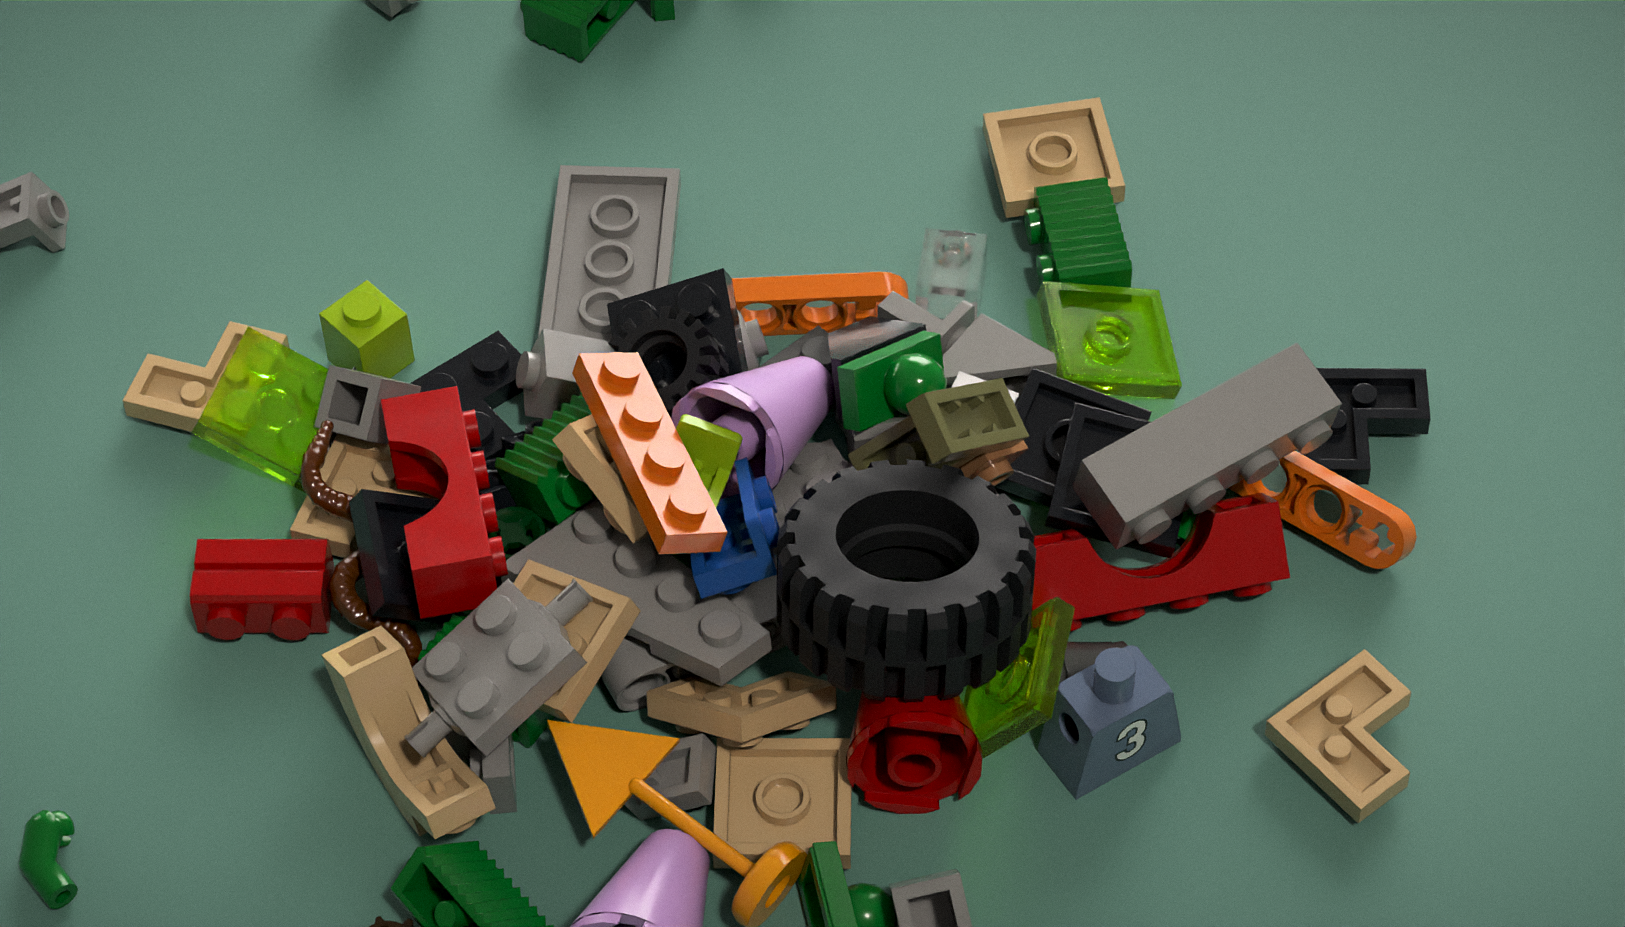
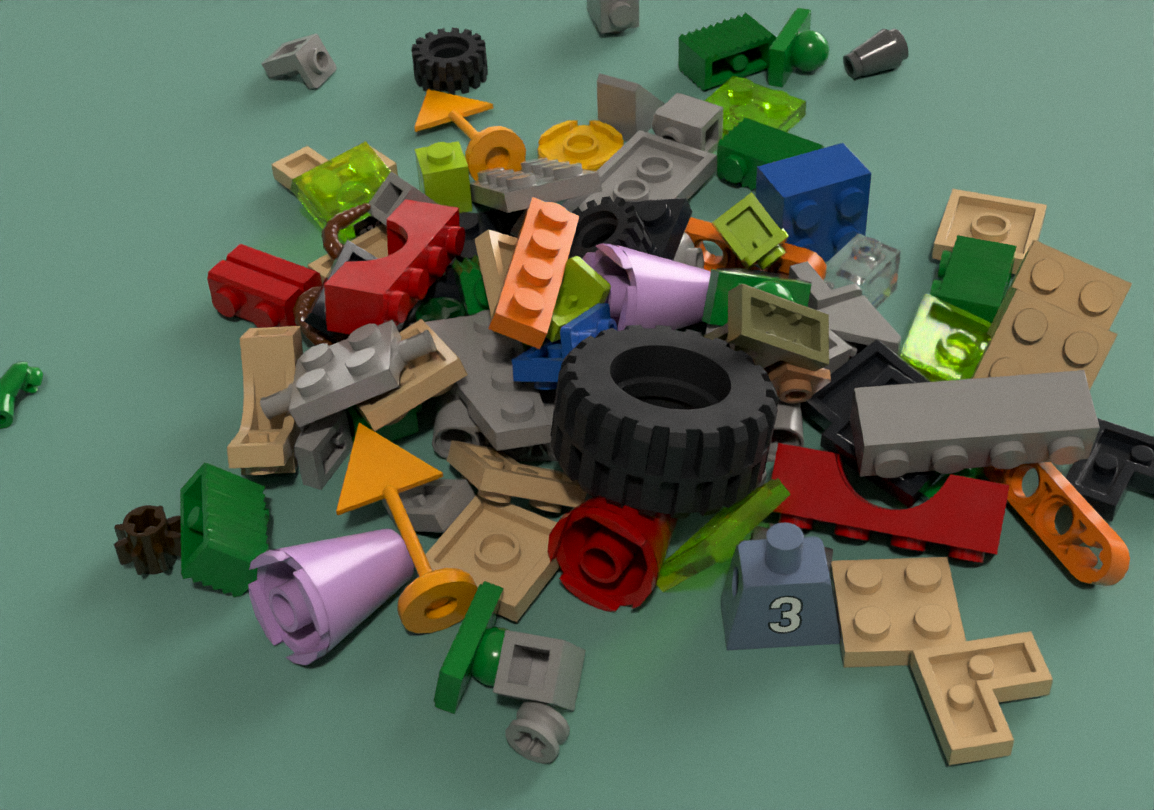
camera: 30 degrees right, 10 degrees down
(234, 165) = (450, 61): none -> black tyre
(269, 220) = (488, 148): none -> light orange piece
(493, 219) = (580, 143): none -> yellow tile
(511, 314) = (538, 179): none -> light grey plate
(519, 141) = (625, 105): none -> light grey slope
(613, 132) = (690, 122): none -> light grey brick
(664, 85) = (750, 100): none -> clear neon green plate
(744, 151) = (755, 145): none -> green brick
(820, 284) = (751, 233): none -> lime bracket
(854, 206) = (817, 198): none -> blue brick
(1206, 283) = (1053, 318): none -> tan bracket
(1223, 679) = (893, 608): none -> tan plate

